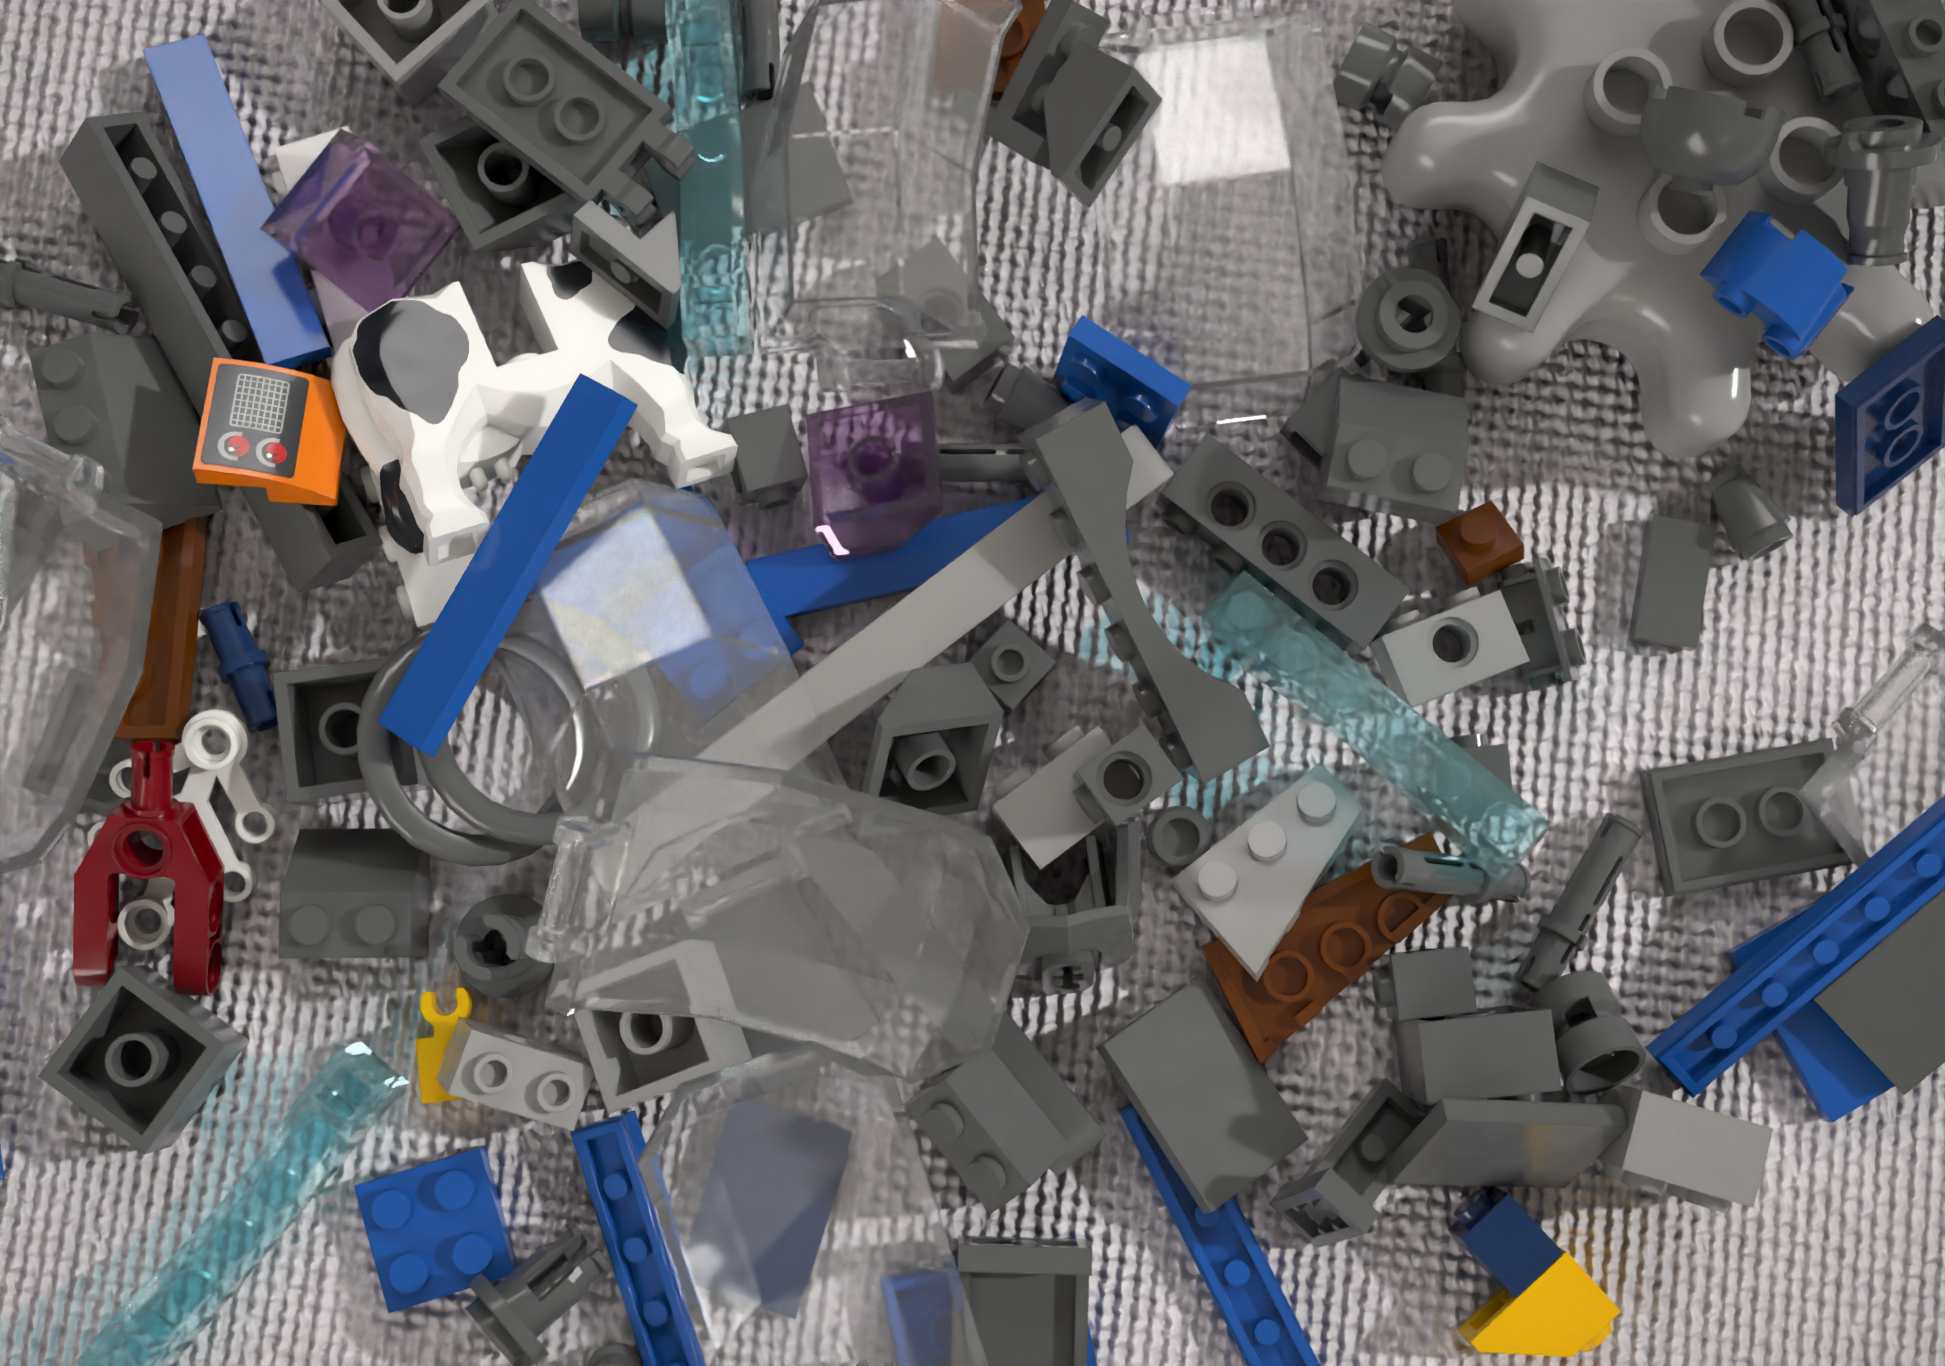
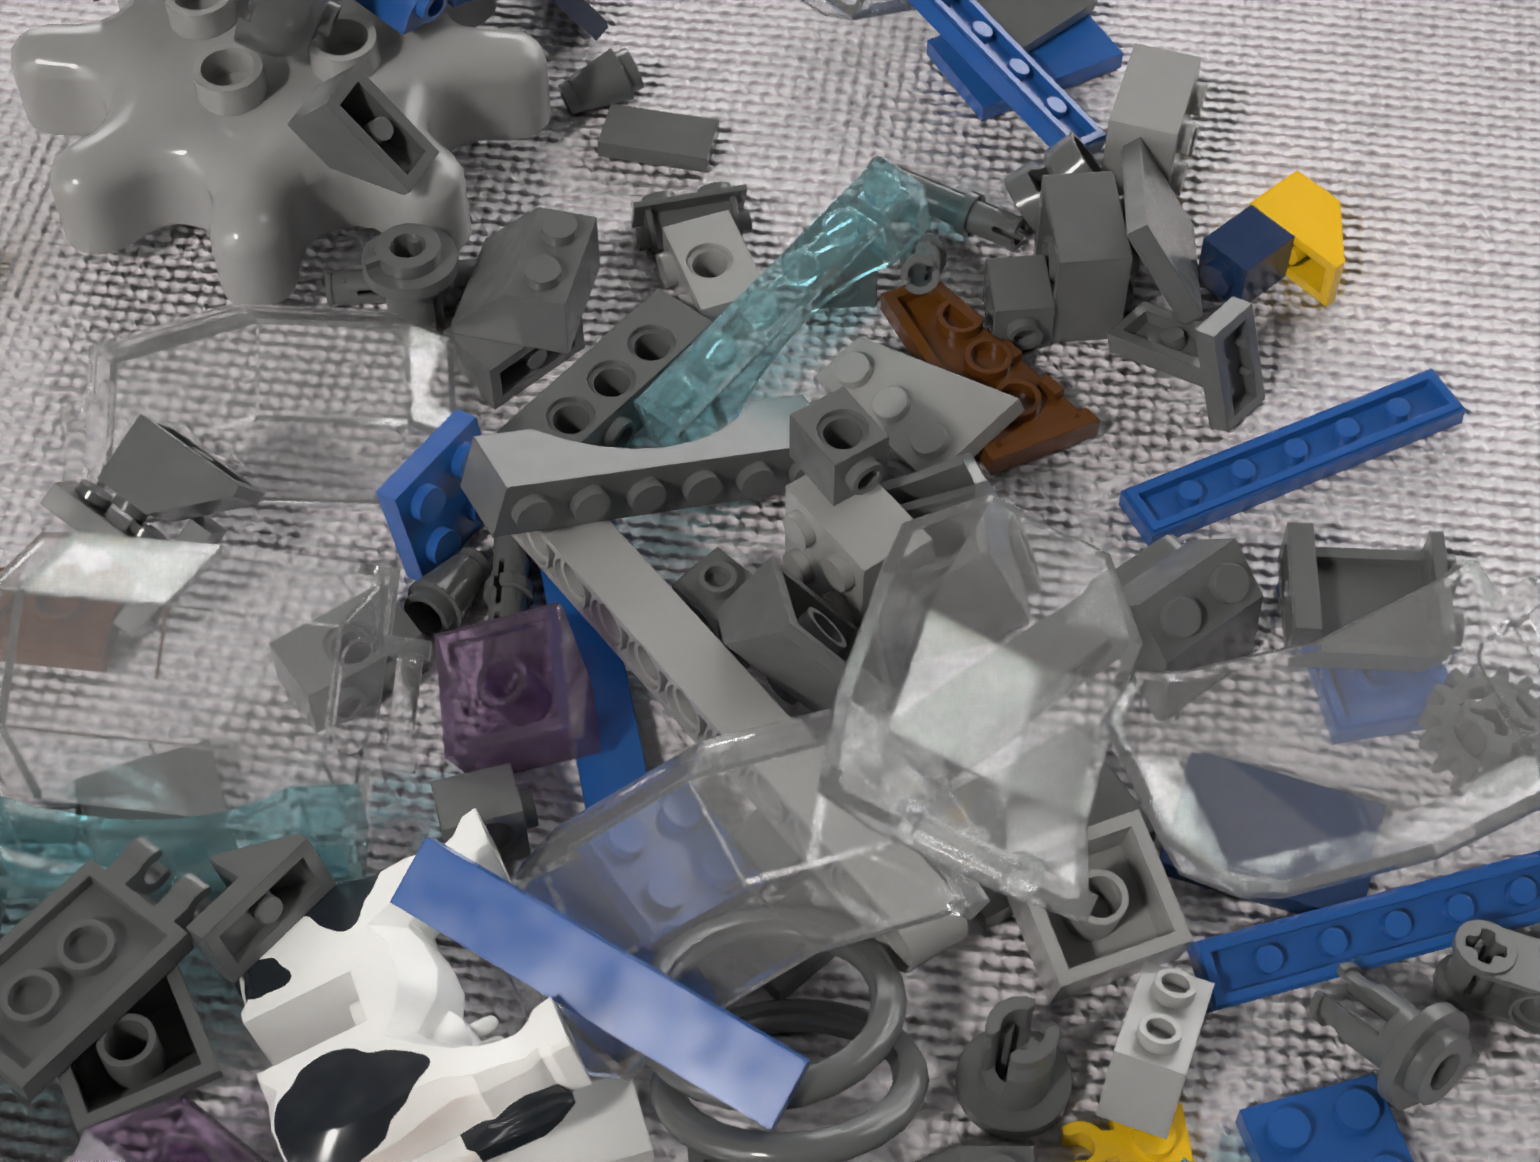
camera: 85 degrees left, 30 degrees down
(1202, 1094) = (1130, 466): dark grey tile -> none
(1384, 76) = (169, 290): dark grey wheel -> none
(1479, 542) = (621, 257): reddish brown plate -> none
(1738, 819) = (865, 100): dark grey tile -> none

